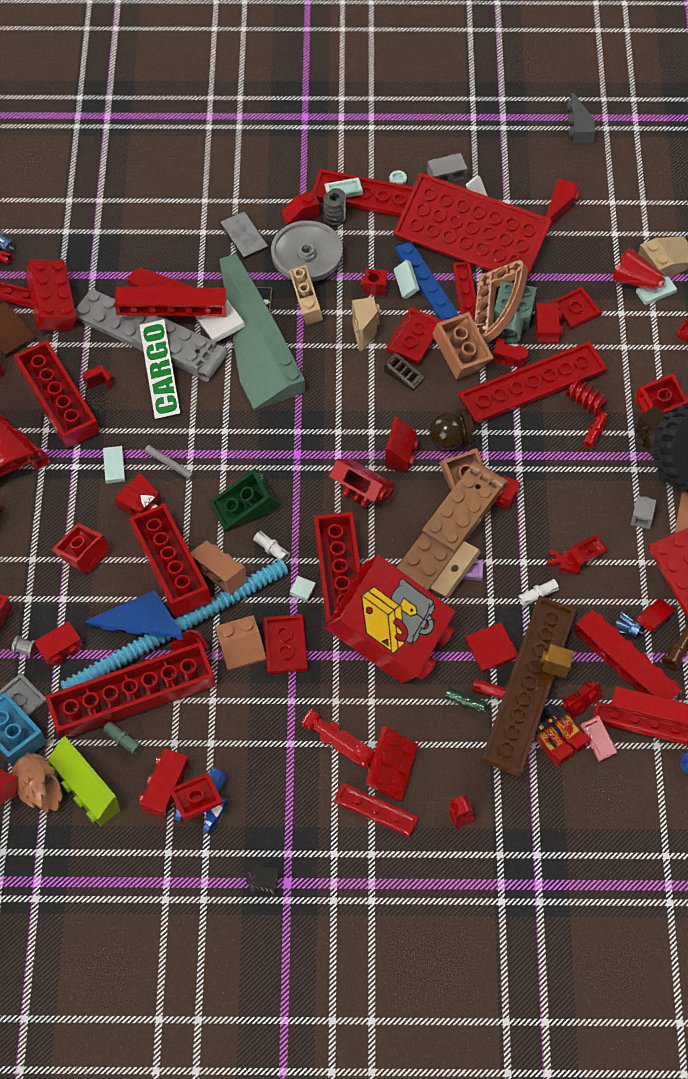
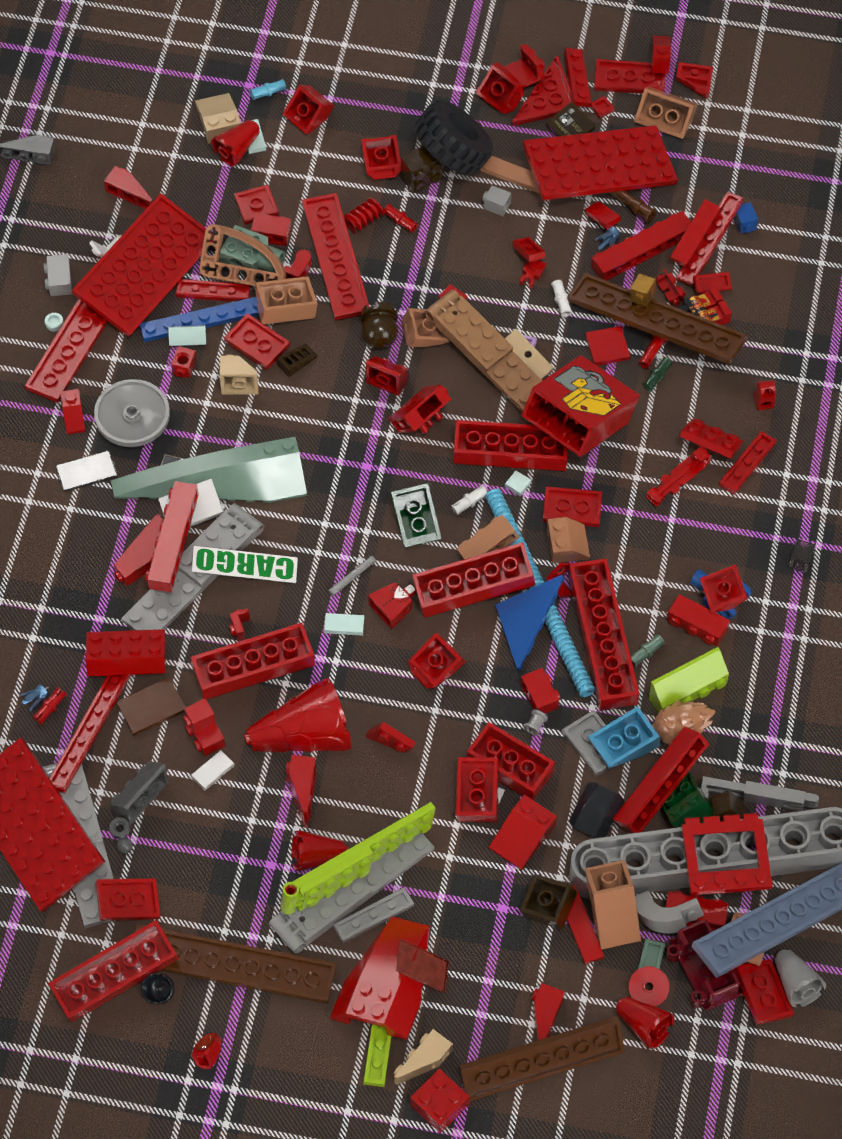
camera: 80 degrees left, 0 degrees up
(306, 295) = (188, 421): tan slope -> none
(335, 207) = (85, 376): dark grey piece -> none
(350, 187) = (61, 367): light aqua tile -> none

